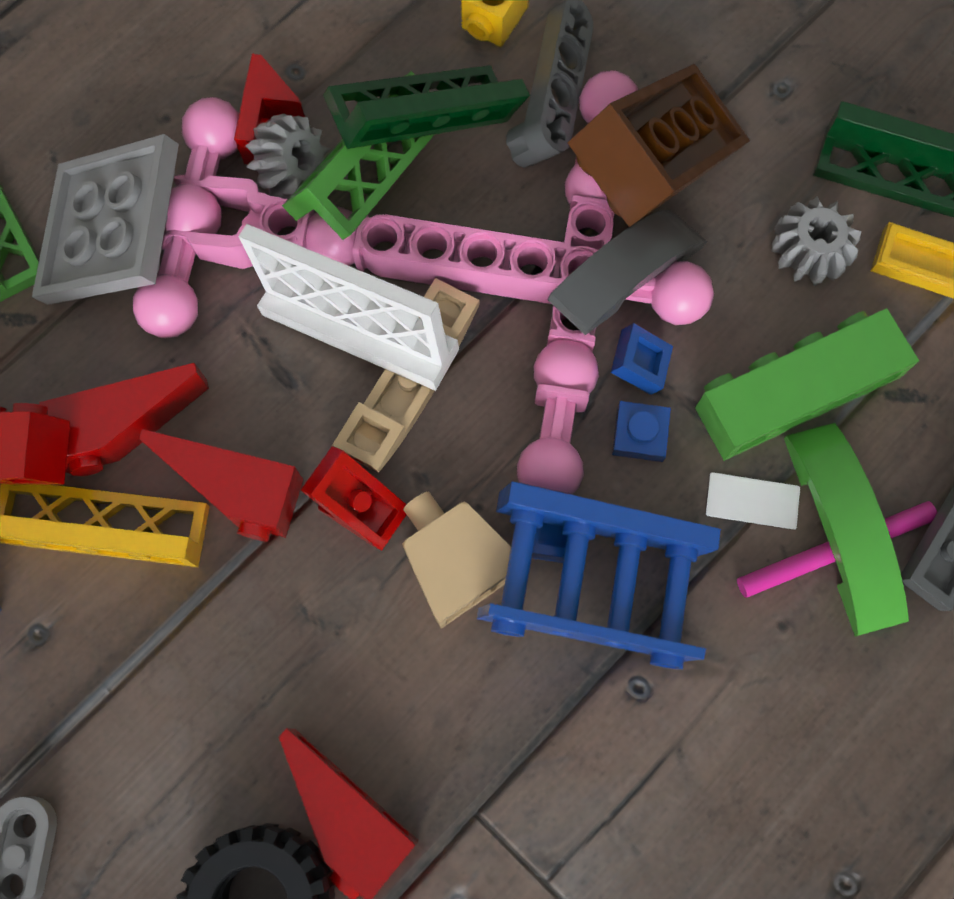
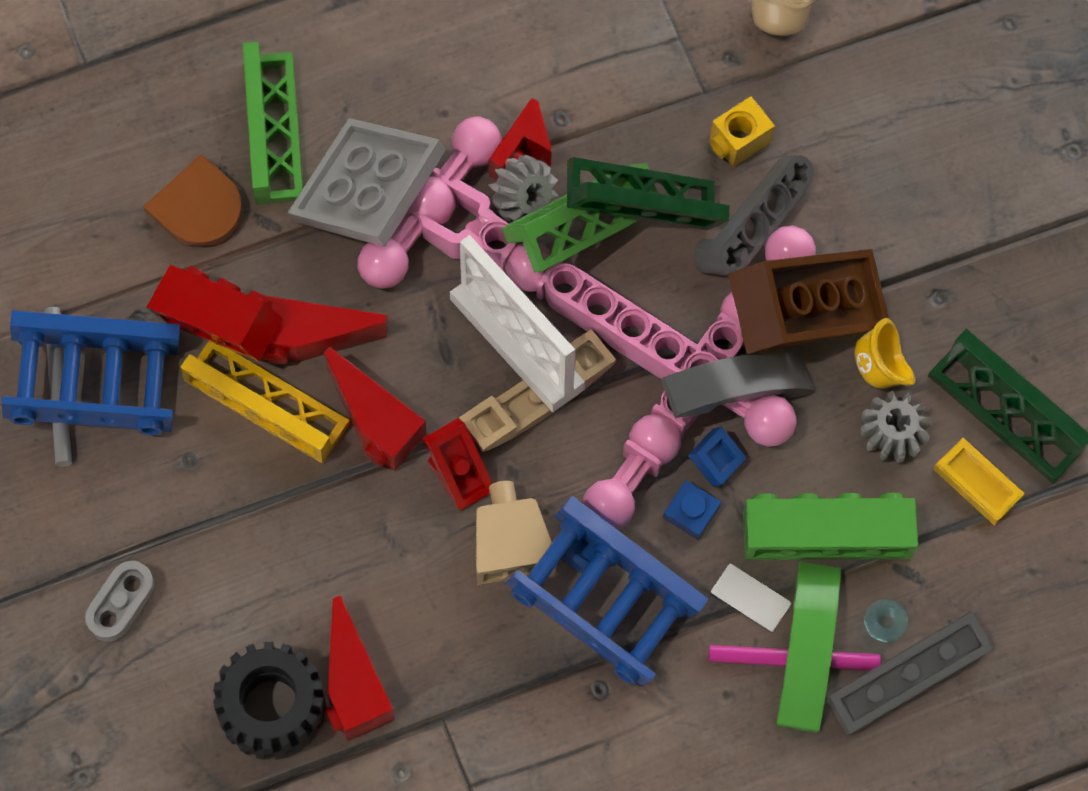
camera: 20 degrees right, 5 degrees down
(761, 178) = (881, 357): none -> yellow helmet
(925, 450) = (886, 608): none -> clear light blue plate

